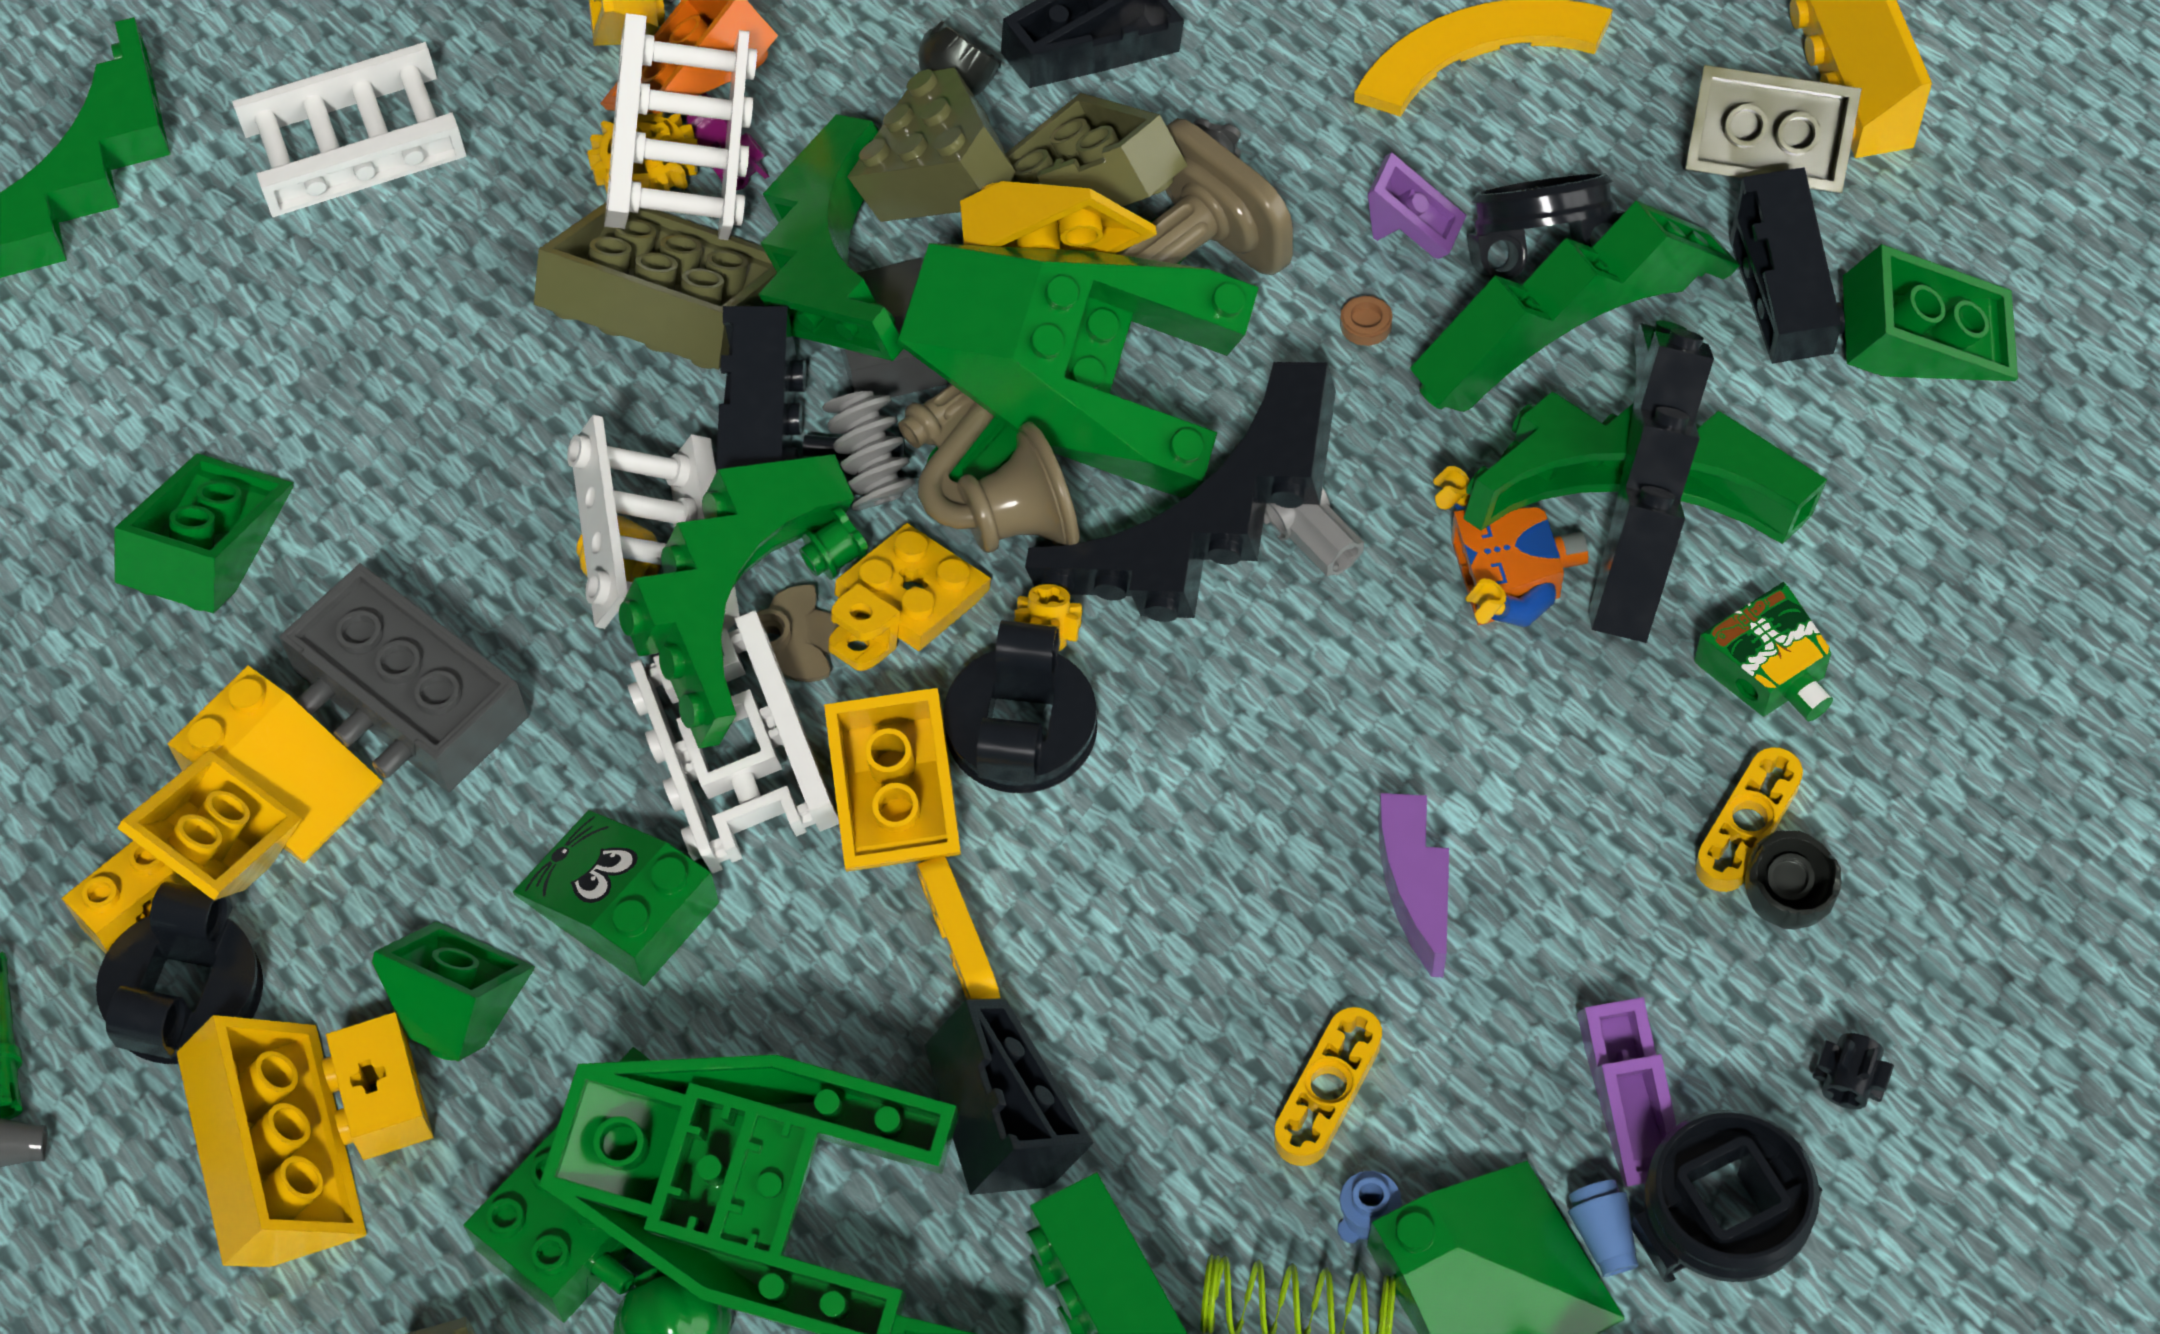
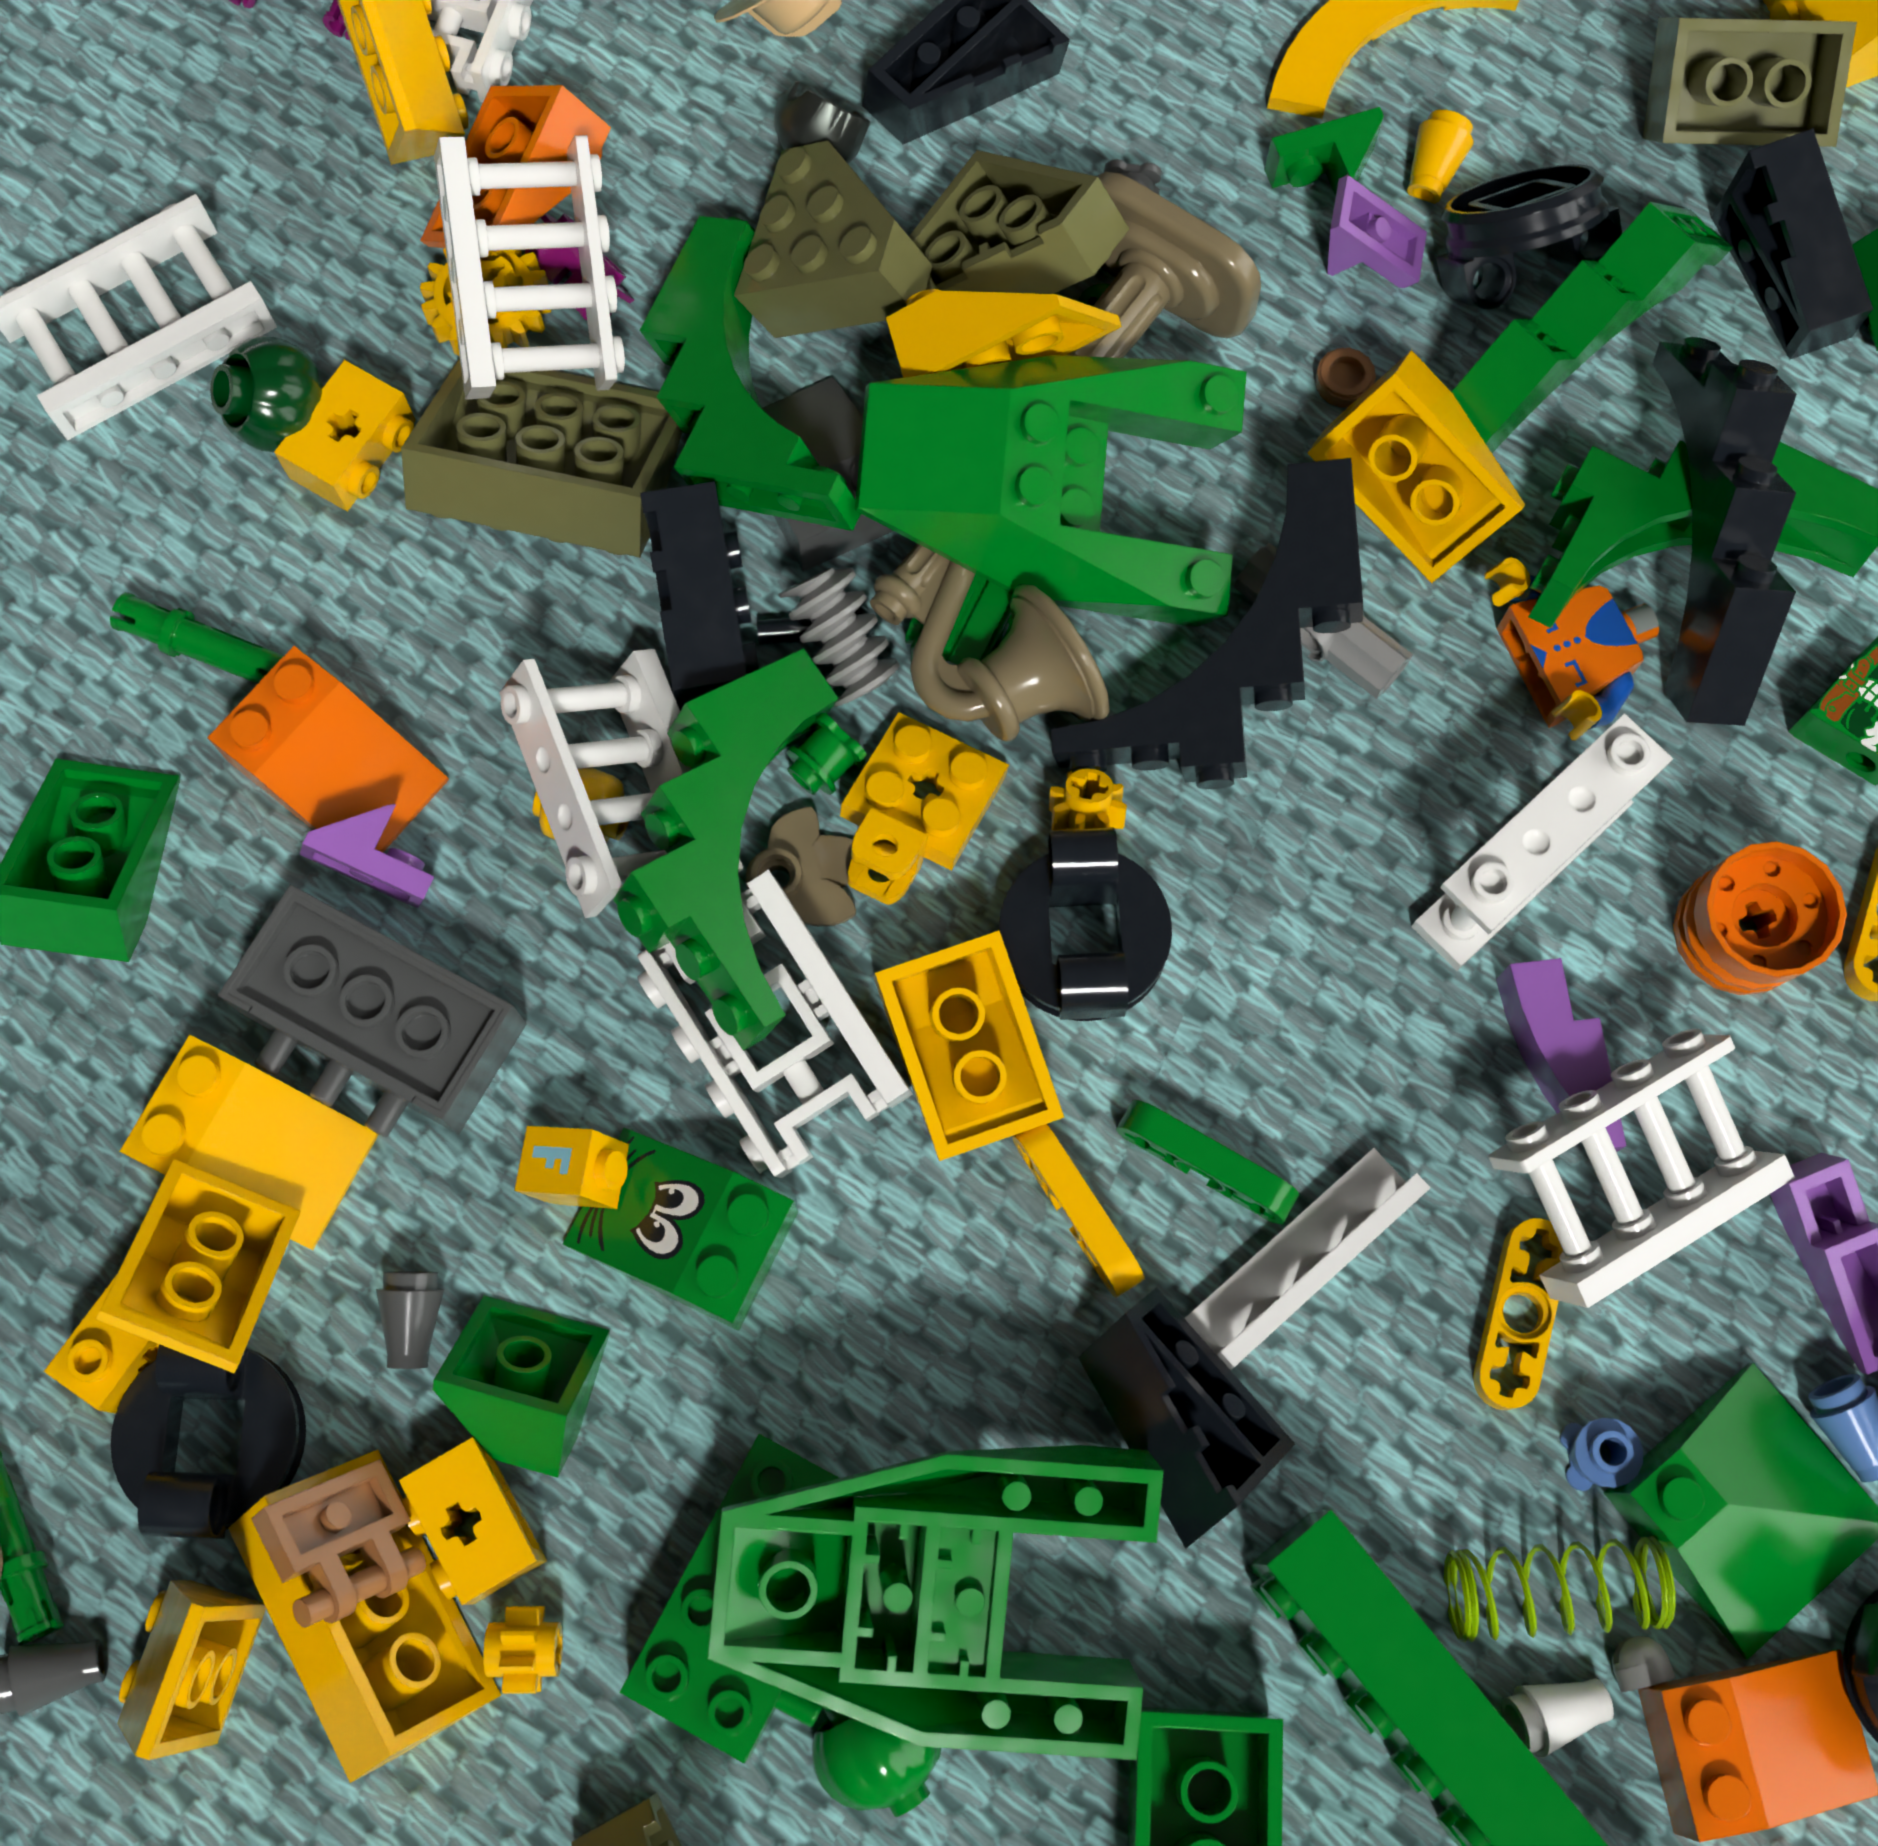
camera: 15 degrees left, 15 degrees up
(121, 1145) = (188, 1670): none -> yellow slope
(268, 1046) = (330, 1521): none -> medium nougat plate
(324, 373) = (179, 633): none -> green pin
(369, 919) = (409, 1316): none -> dark grey cone
(393, 1191) = (523, 1649): none -> yellow gear
(417, 483) = (324, 750): none -> orange slope
(420, 552) = (351, 851): none -> medium lavender slope
(445, 200) = (265, 391): none -> dark green plant
(497, 242) = (347, 437): none -> yellow brick
(534, 824) = (572, 1167): none -> yellow brick
(1073, 906) = (1226, 1170): none -> green beam
(1148, 1008) = (1304, 1257): none -> white fence
(1400, 390) = (1420, 467): none -> yellow slope
(1408, 135) = (1331, 148): none -> green slope
(1426, 698) = (1541, 841): none -> white fence
(1439, 1024) = (1690, 1203): none -> white fence
(1492, 155) = (1438, 153): none -> yellow cone
(1614, 763) = (1788, 898): none -> orange wheel

